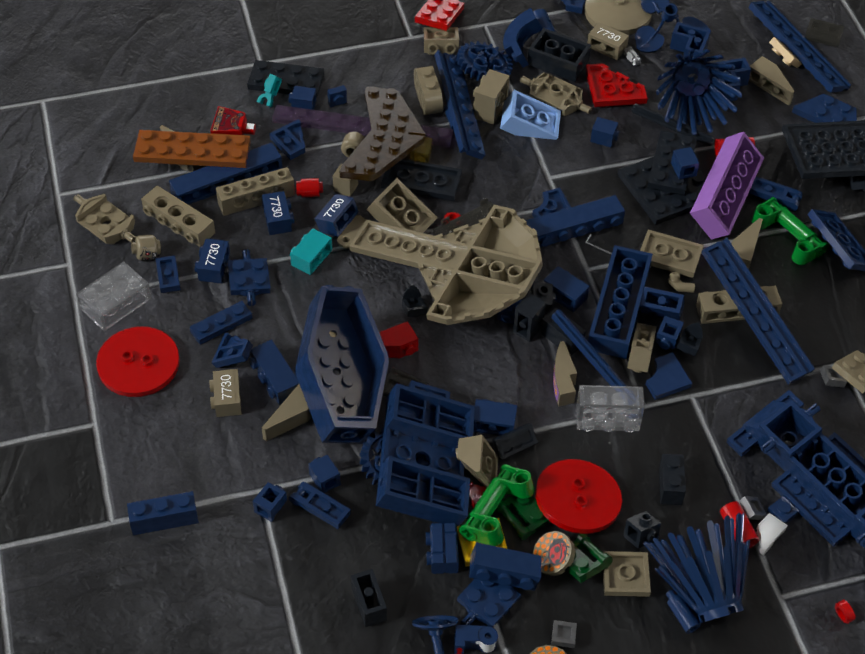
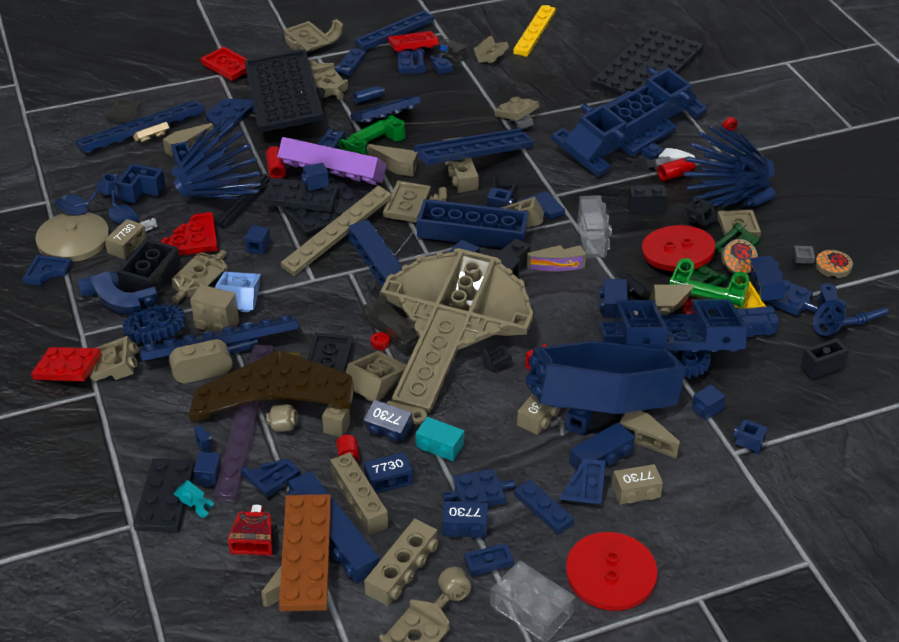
camera: 95 degrees left, 10 degrees down
(162, 513) = (793, 512): dark blue brick -> none
(320, 505) = (739, 403): dark blue plate -> none
(552, 202) = (356, 273): dark blue tile -> none
(587, 349) = (542, 234): dark blue axle -> none
(610, 186) = (335, 231): none -> dark tan plate
(662, 303) = (474, 193): dark blue brick -> none

